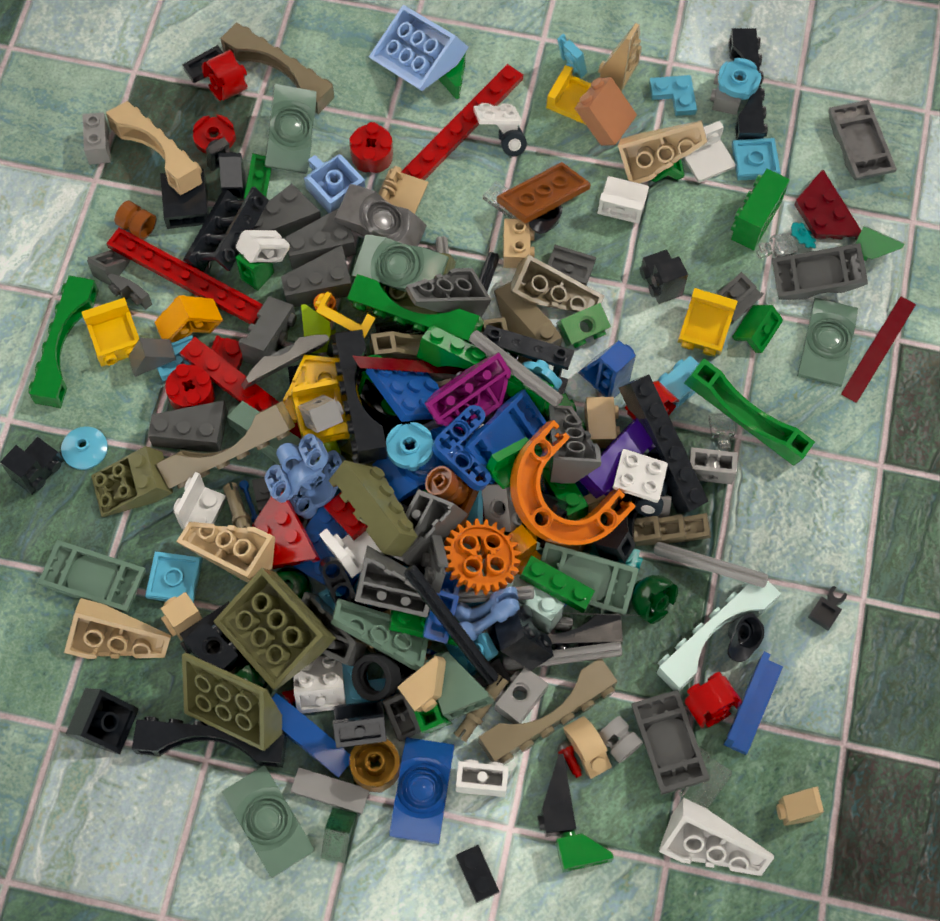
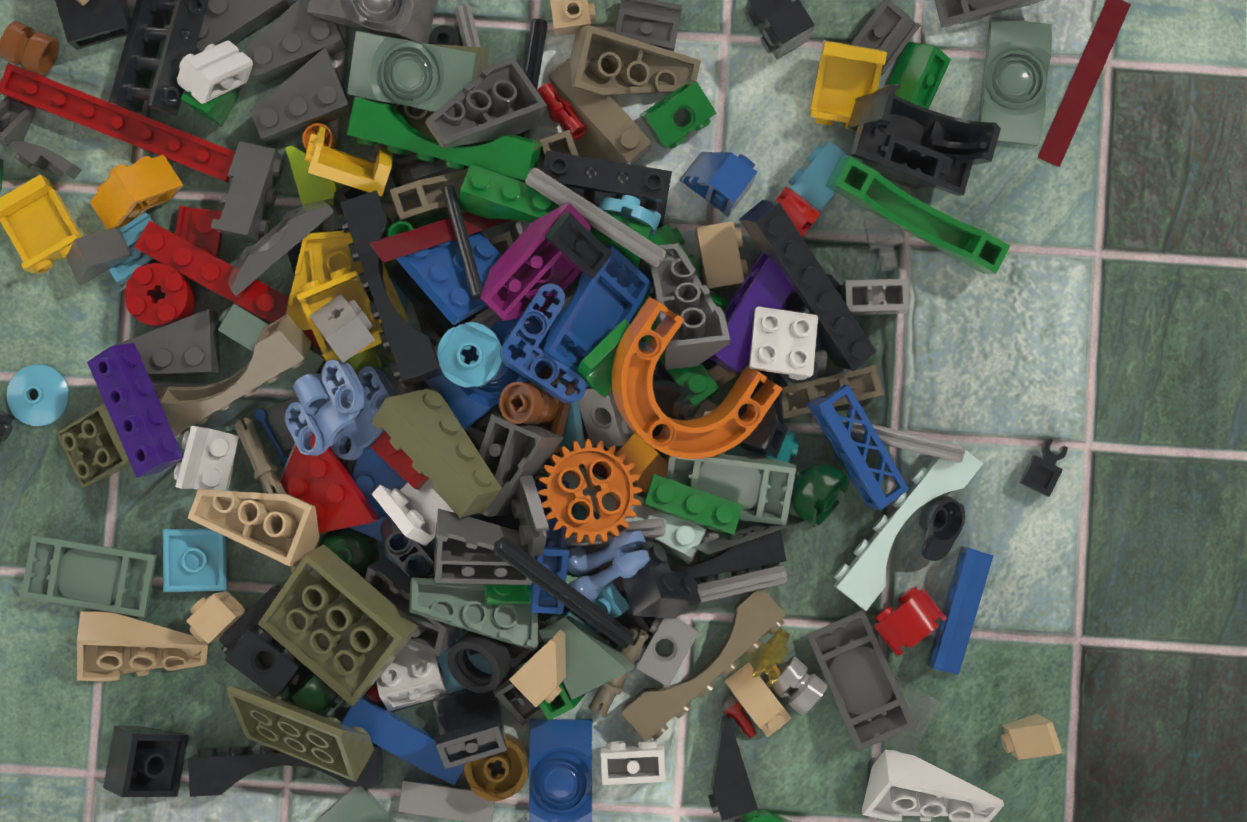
camera: 10 degrees left, 20 degrees up
(157, 454) = (135, 409): none -> dark purple brick
(417, 372) = (463, 242): none -> black bar
(500, 310) = (561, 111): none -> red pin
(500, 380) = (578, 245): none -> black plate
(603, 712) = (773, 652): none -> clear yellow plate
(679, 570) = (848, 453): none -> blue fence
(751, 366) = (917, 143): none -> black piece

